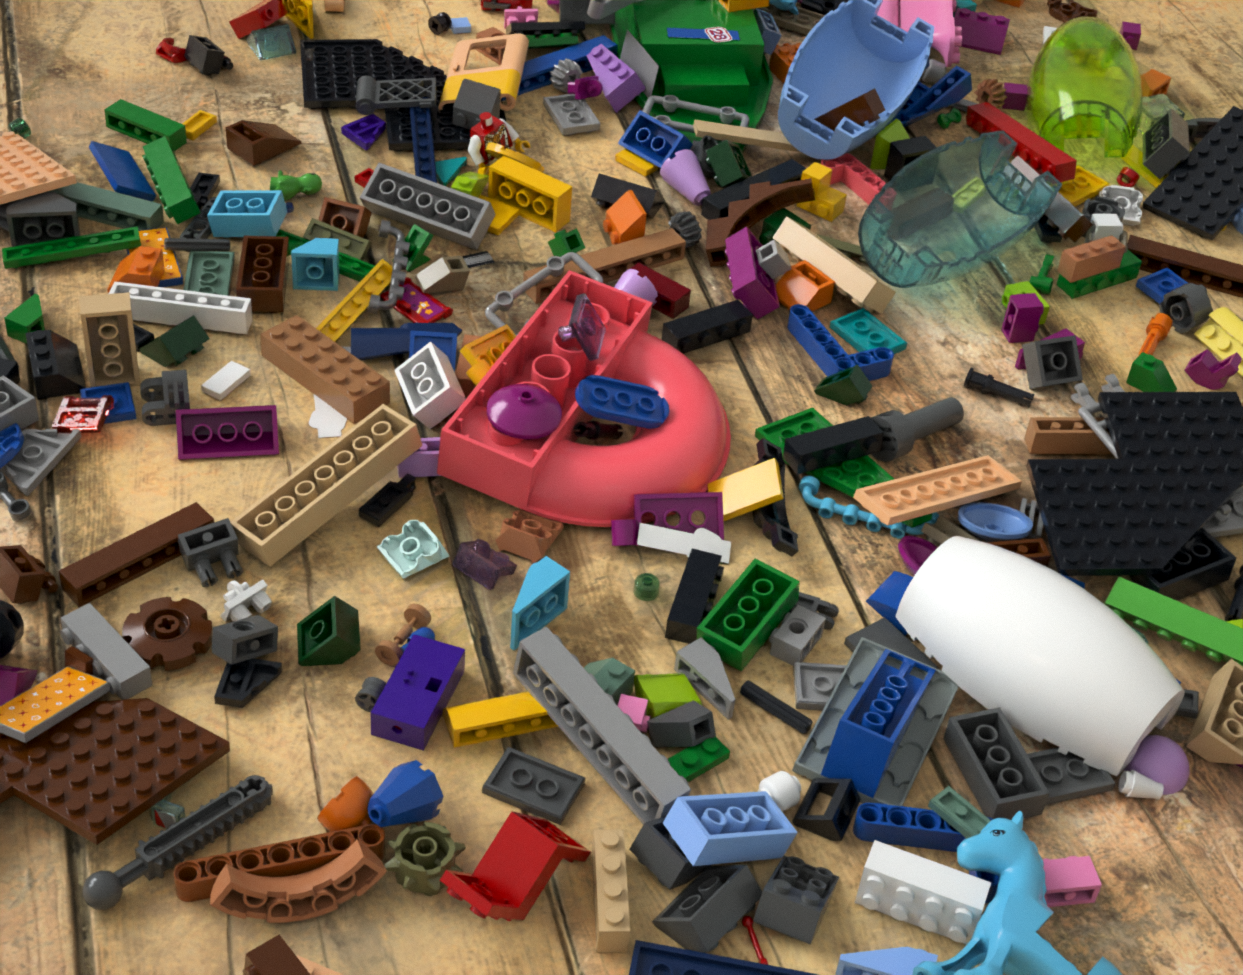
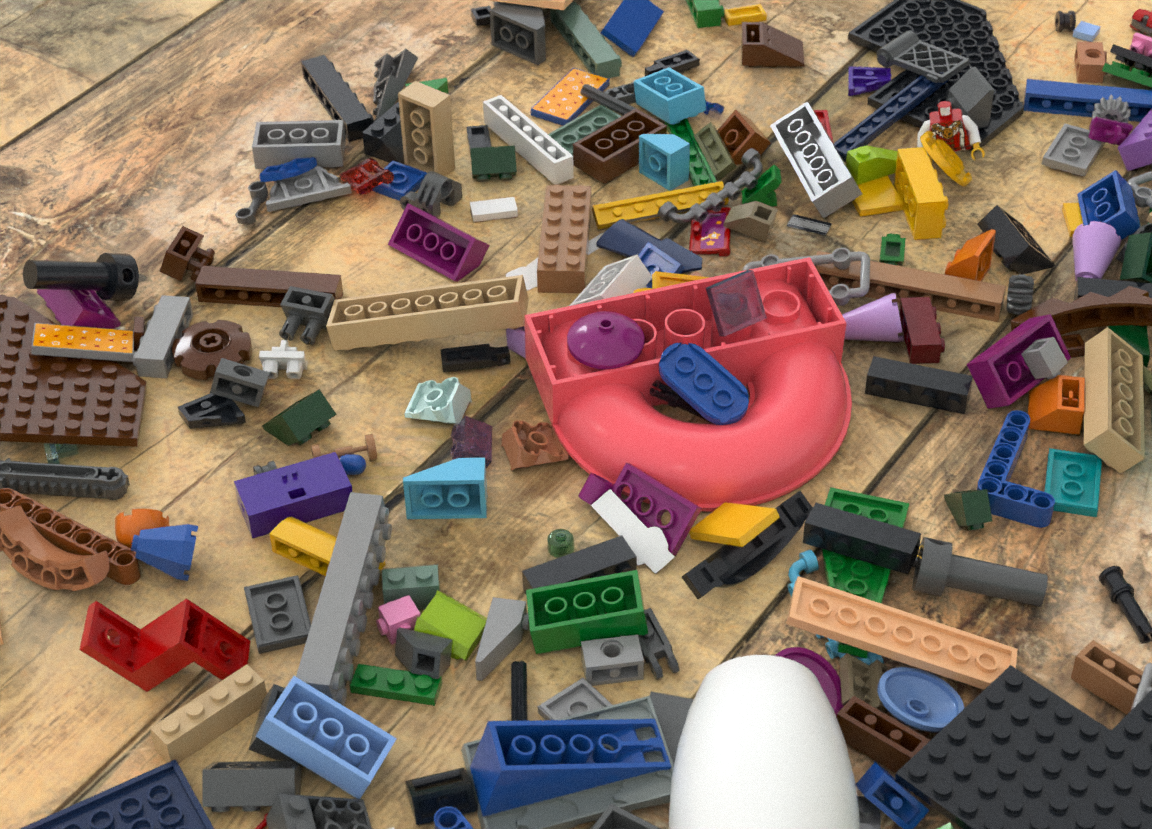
camera: 55 degrees right, 0 degrees up
(71, 247) = (522, 60): green plate -> none
(140, 267) = (538, 99): orange slope -> none
(170, 181) = (653, 44): green brick -> none
(290, 186) = (738, 92): bright green animal -> none
(423, 857) = (137, 595): olive brick -> none
(448, 169) = (895, 141): teal tile -> none
(504, 77) = (1025, 88): light nougat piece -> none
(782, 789) = (417, 752): white head -> none

